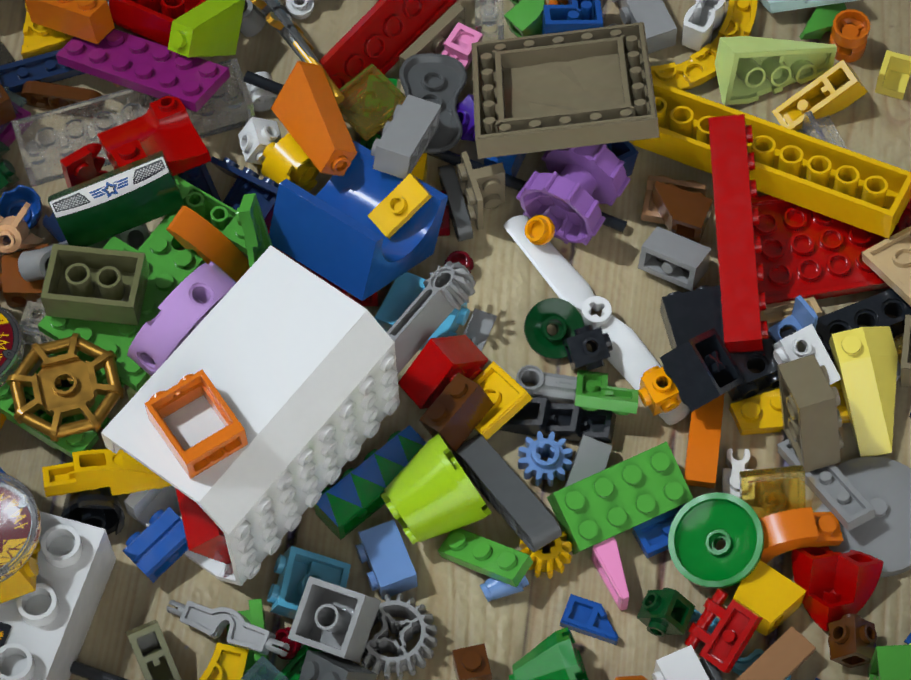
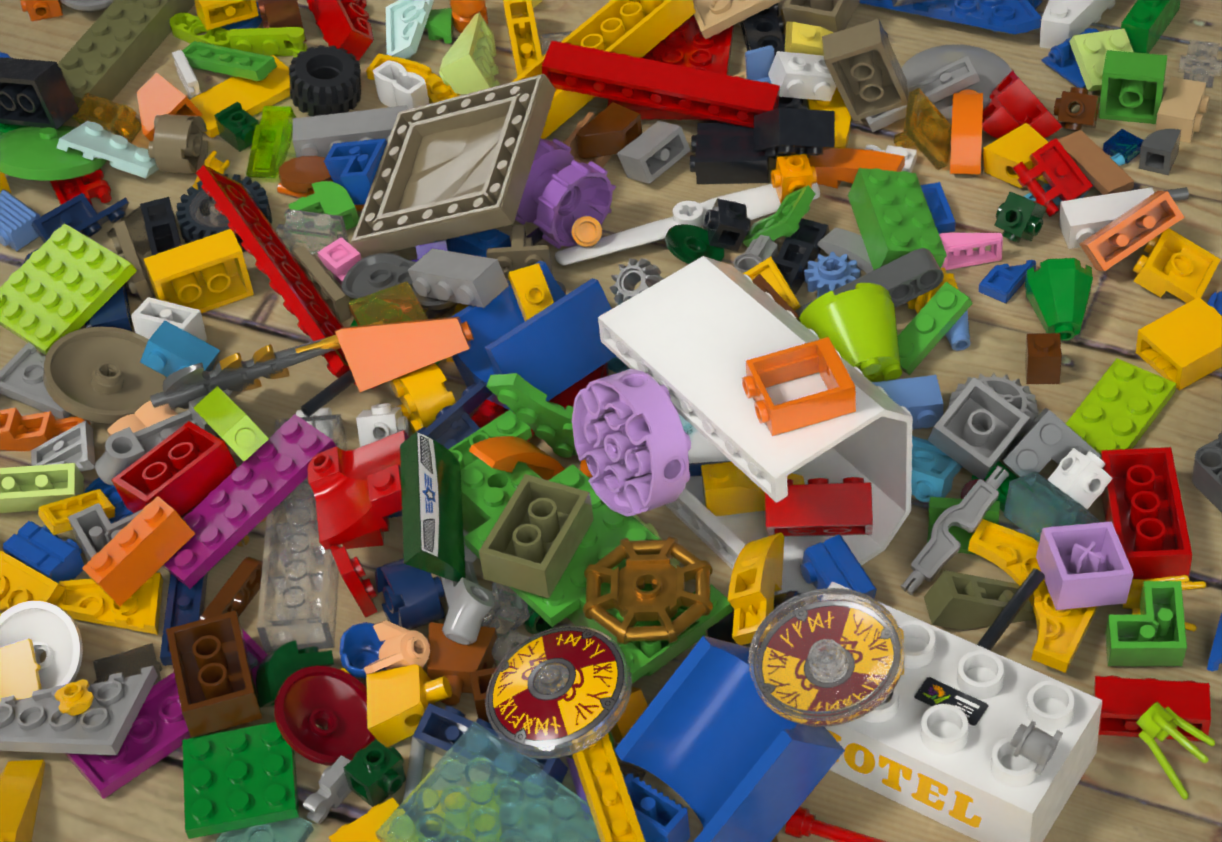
camera: 70 degrees left, 15 degrees down
(700, 527) = (965, 150): green dish -> none

